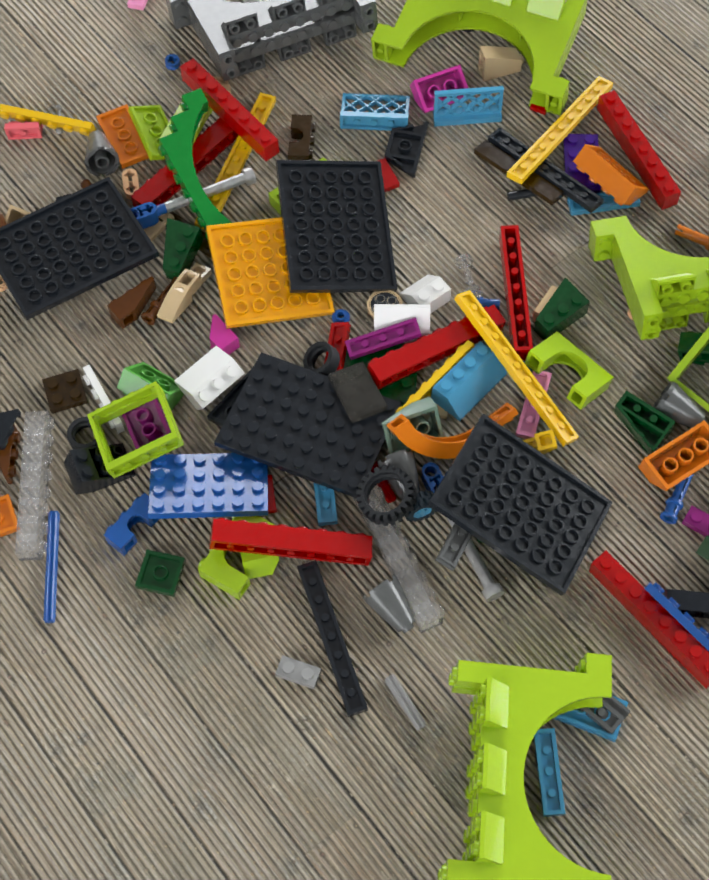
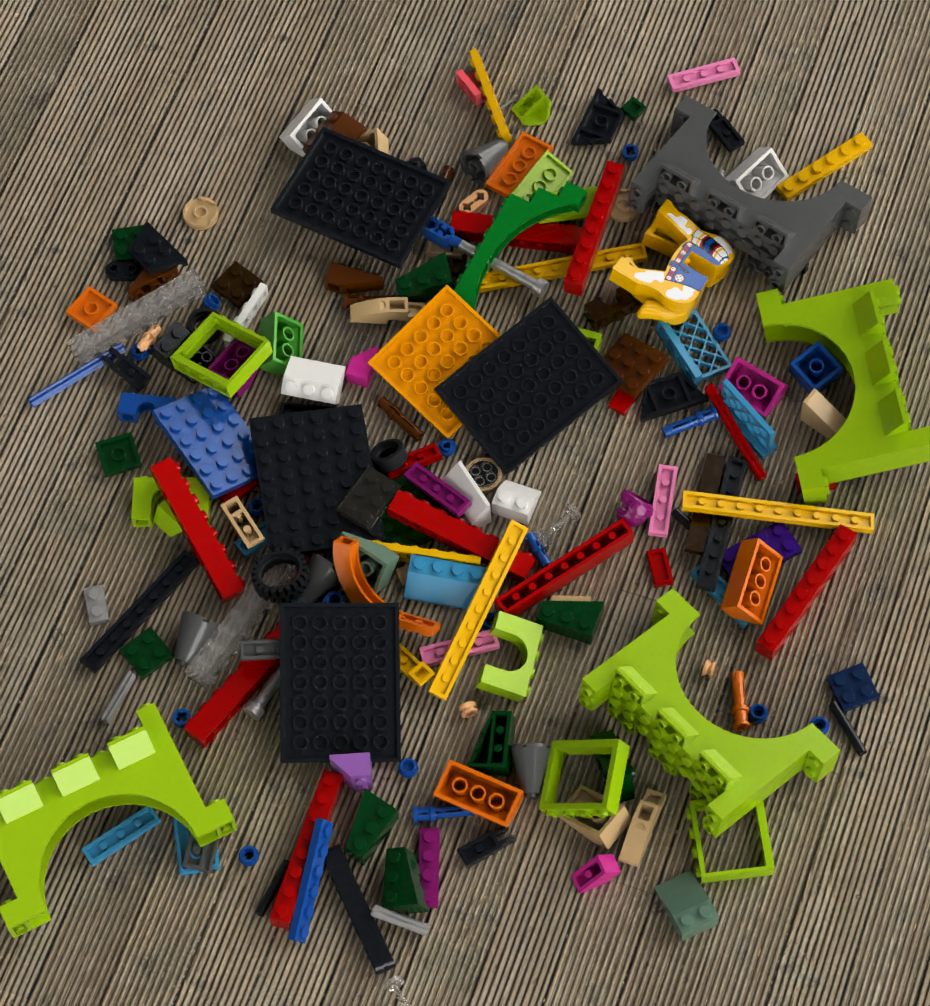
camera: 60 degrees right, 0 degrees up
(64, 485) = (149, 338): none -> light nougat axle
(66, 418) = (211, 301): none -> blue plate
(69, 497) = (139, 357): none -> blue plate
(80, 99) = (533, 107): none -> lime slope
(81, 520) = (127, 370): none -> black hinge
(129, 65) = (599, 122): none -> black wing
(136, 39) = (633, 108): none -> dark green plate
(290, 336) = (394, 413): none -> reddish brown pin
(294, 483) = (254, 503): none -> blue plate
(308, 503) = (242, 522): none -> tan slope
(321, 83) = (695, 263): none -> yellow animal
(363, 147) = (635, 363): none -> reddish brown plate
(375, 86) = (721, 332): none -> blue plate
(376, 654) = (146, 653): none -> dark green plate
(439, 144) = (699, 418): none -> blue pin
(455, 45) = (815, 368): none -> blue brick
(461, 591) = (230, 697): none -> red brick
(463, 651) = (180, 723): none -> blue bush
(468, 121) = (735, 432): none -> red axle
(492, 218) = (636, 509): none -> magenta helmet
(495, 198) = (663, 501): none -> bright pink plate
(550, 231) = (659, 567): none -> red tile
(595, 426) = (468, 709): none -> light nougat bush
(609, 537) = (355, 770): none -> medium lavender slope
(620, 500) = (408, 768): none -> blue plate
(630, 666) = (248, 850): none -> blue plate
(663, 242) = (709, 668): none -> light nougat bush
(663, 557) = (370, 827): none -> dark green wedge
(673, 667) = (272, 889): none -> black piece

